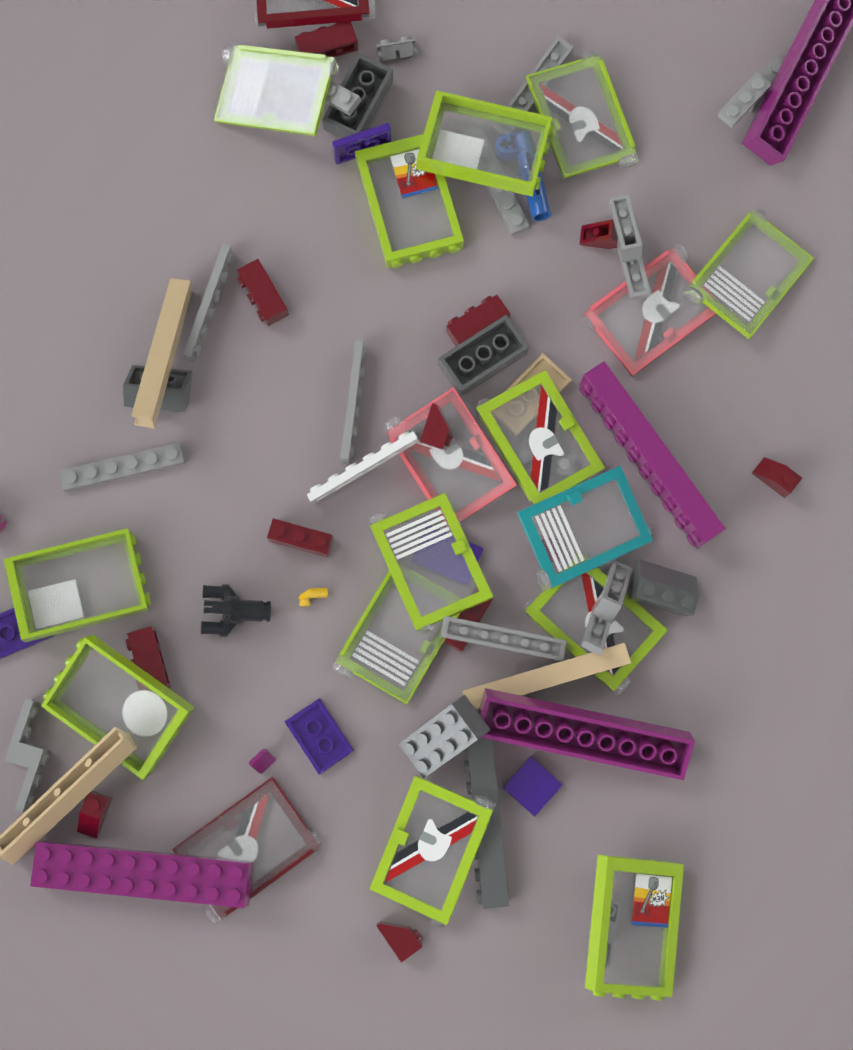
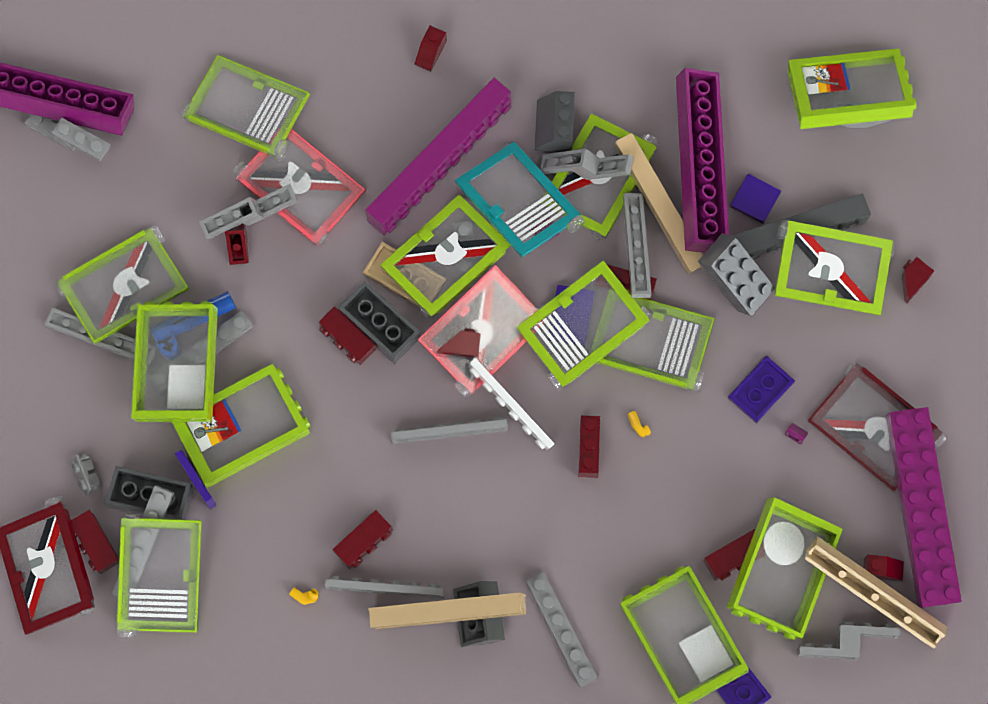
camera: 95 degrees left, 5 degrees down
(220, 226) = (306, 597): none -> yellow arm
(232, 610) = (670, 491): black wheel -> none

